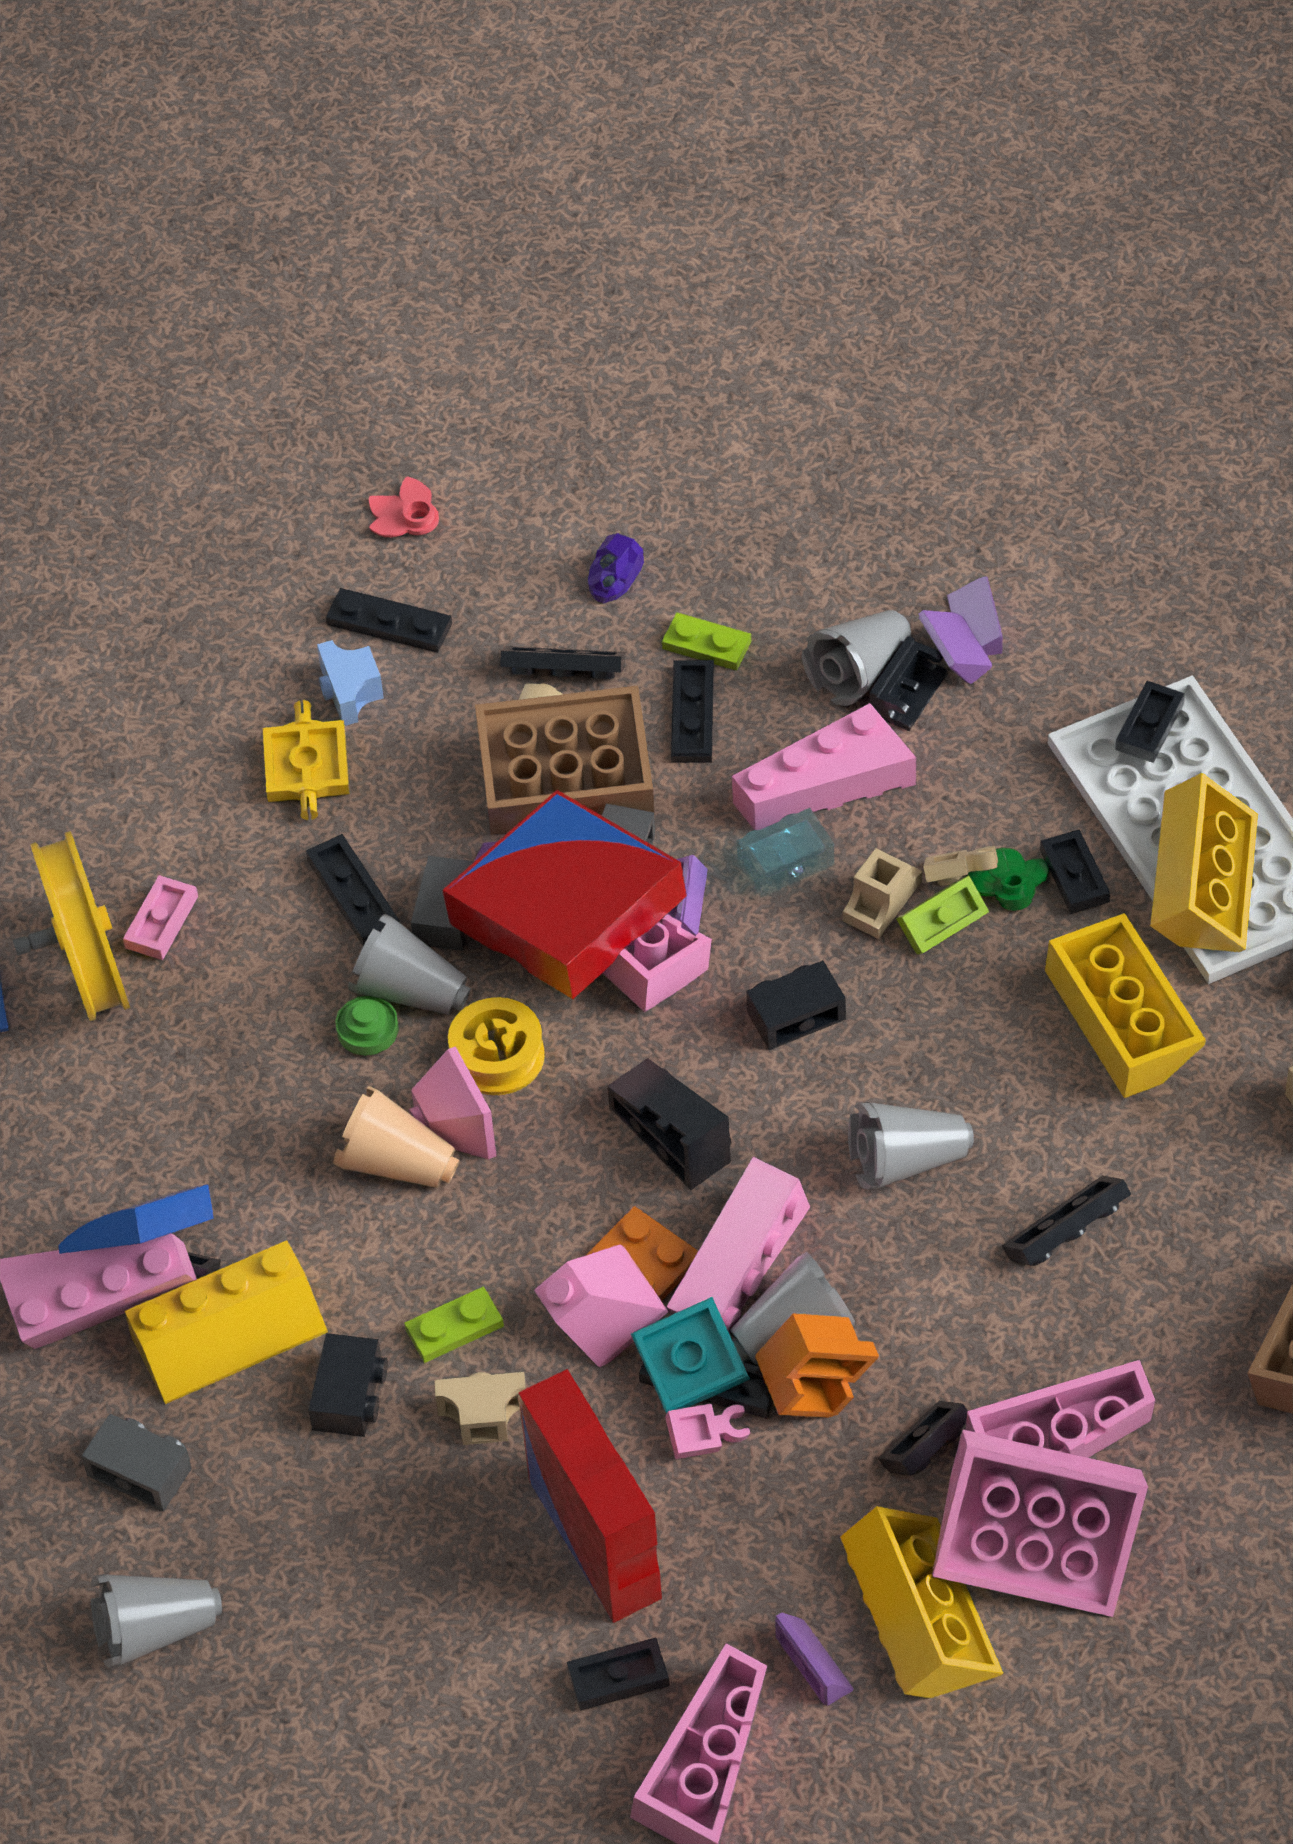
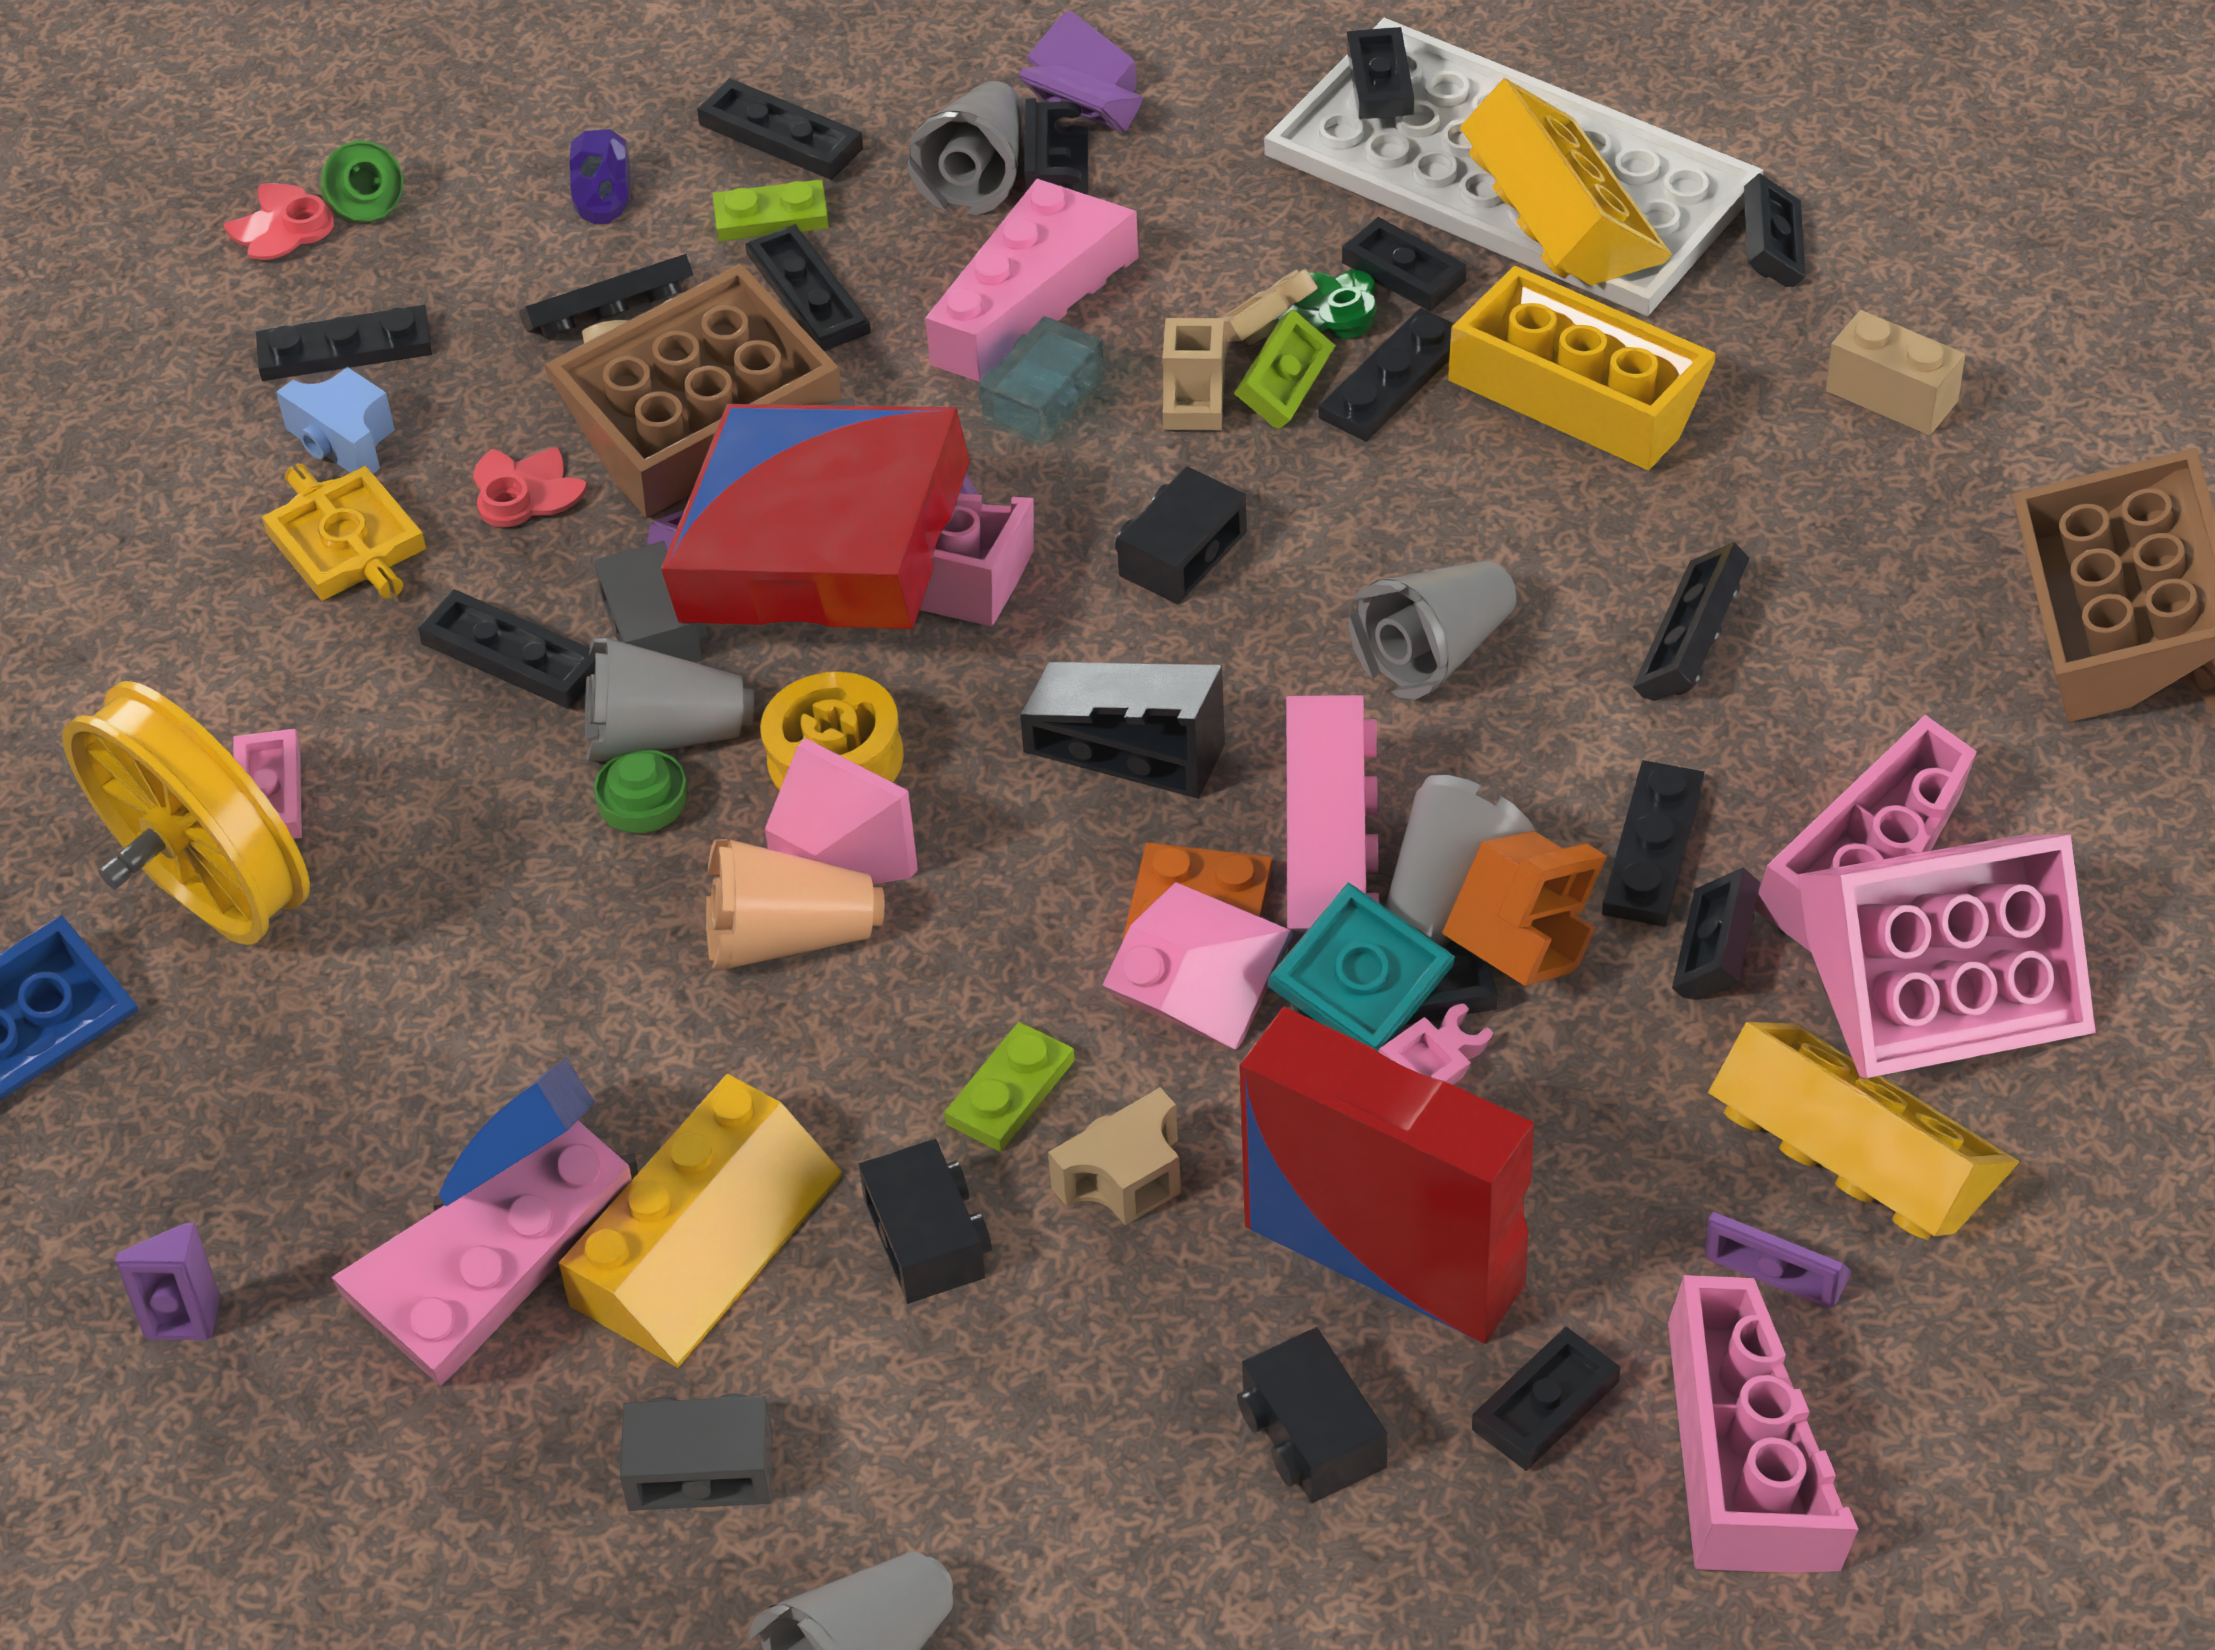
camera: 30 degrees left, 5 degrees down
(437, 777) = (524, 488): none -> coral plate
(464, 506) = (361, 182): none -> bright green plate
(479, 1615) = (1312, 1415): none -> black brick
(749, 582) = (780, 128): none -> black plate
(937, 1357) = (1653, 843): none -> black plate
(1007, 950) = (1389, 376): none -> black plate

